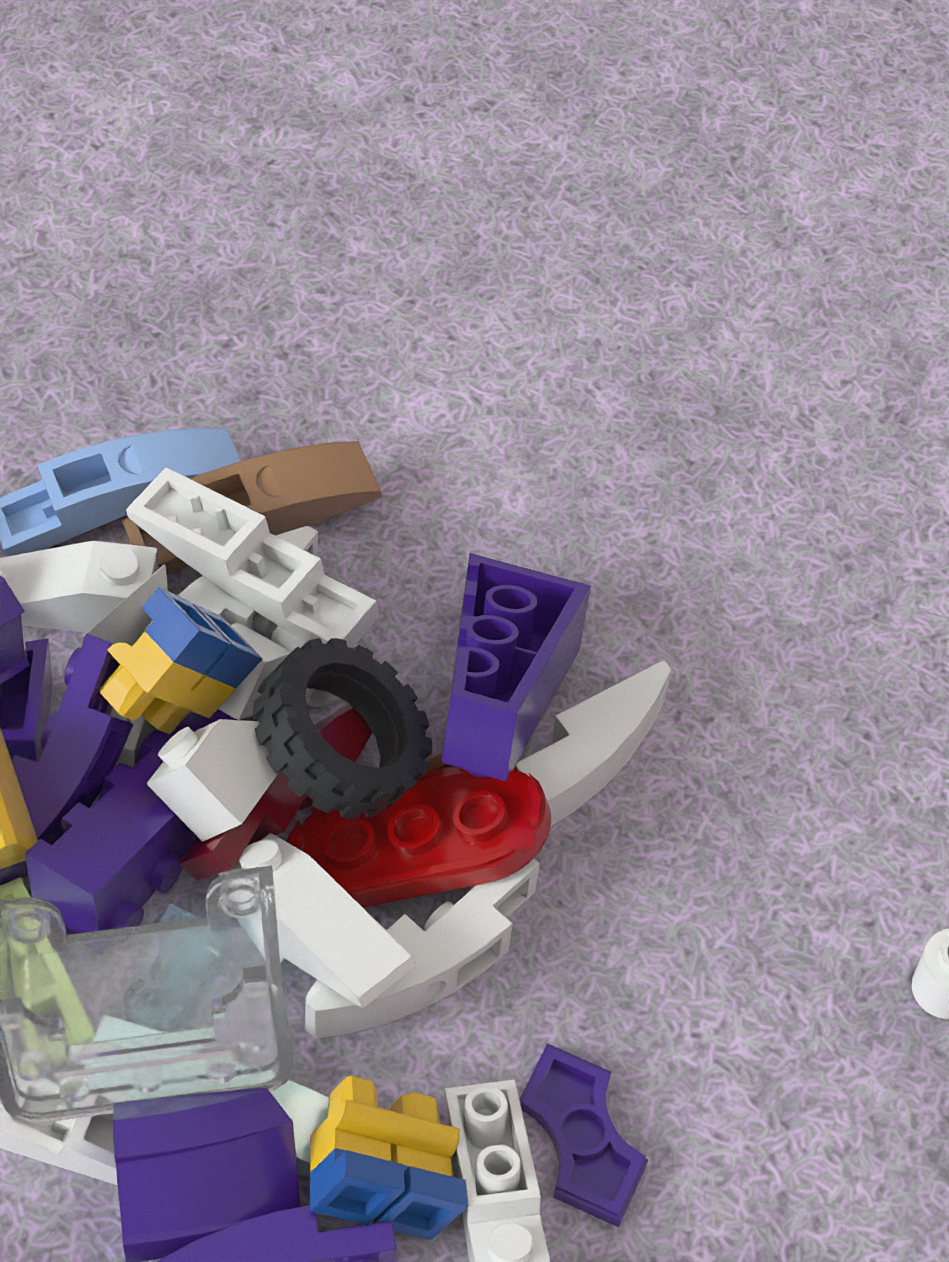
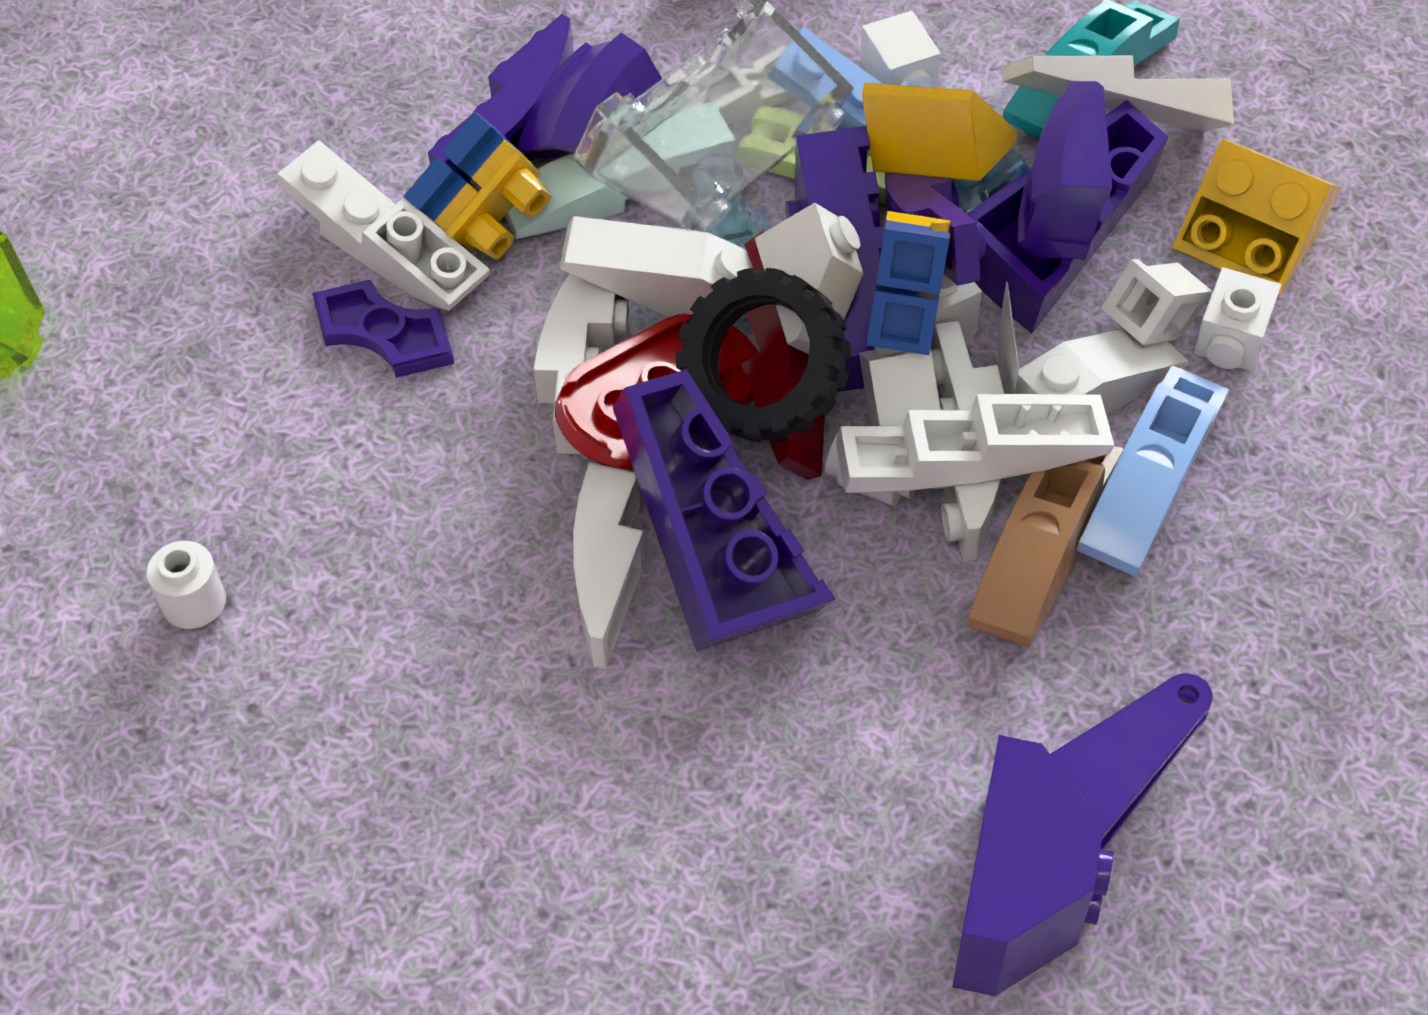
camera: 145 degrees right, 0 degrees up
(516, 324) = (1048, 830): none -> dark purple slope

